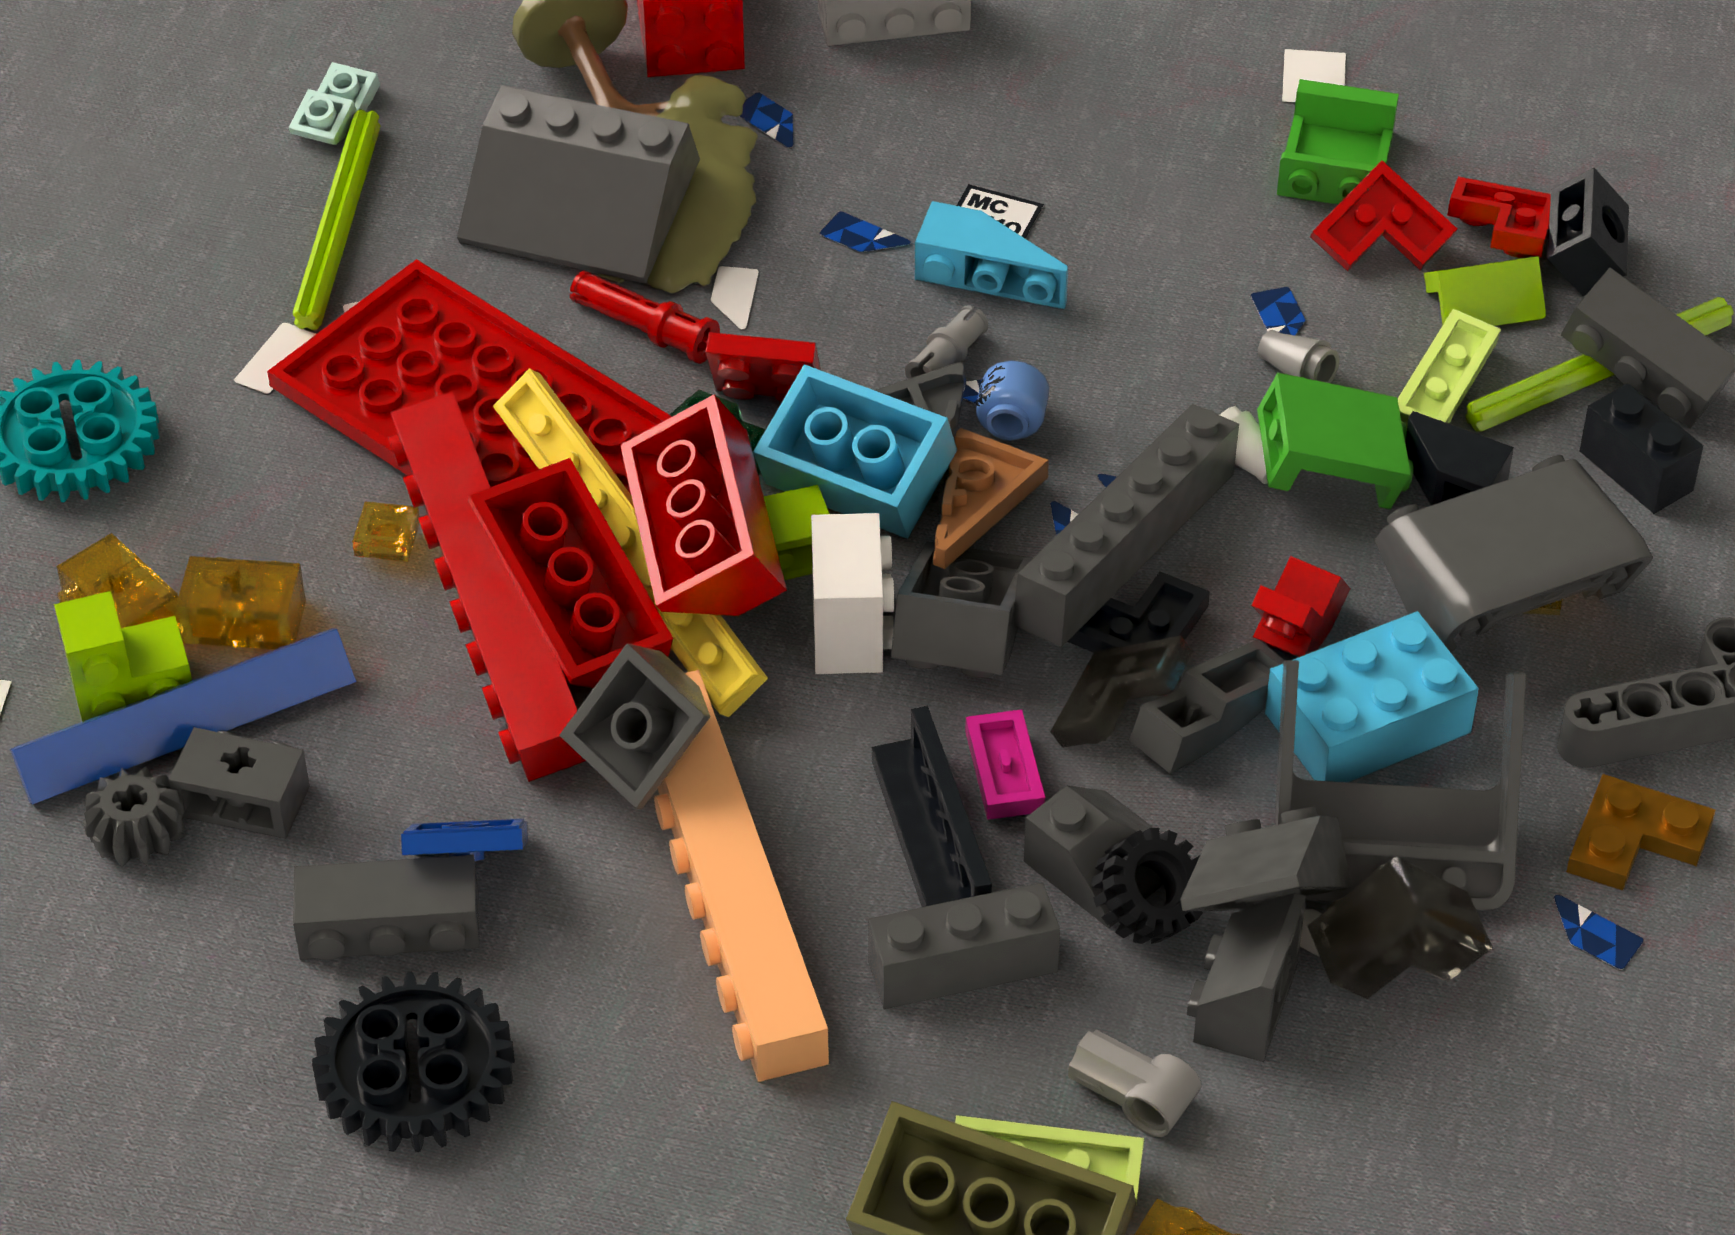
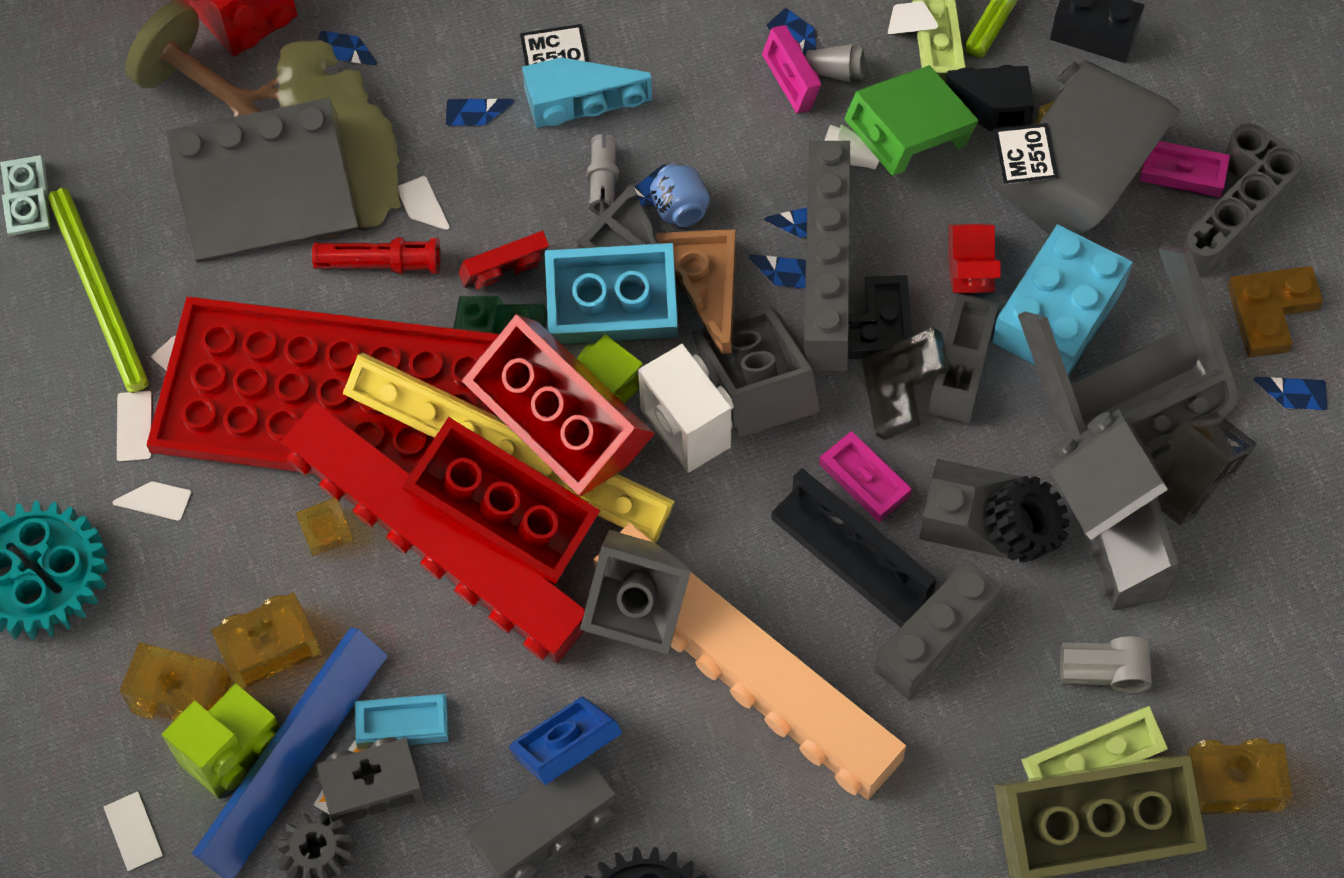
camera: 30 degrees left, 15 degrees up
(243, 434) = (156, 500): none -> white sticker
(330, 750) = (415, 717): none -> medium azure tile
(1240, 332) = (791, 69): none -> dark pink plate
(1418, 350) = (911, 18): none -> white sticker
(1423, 513) = (1025, 153): none -> sticker
(1633, 638) = (1186, 168): none -> dark pink plate

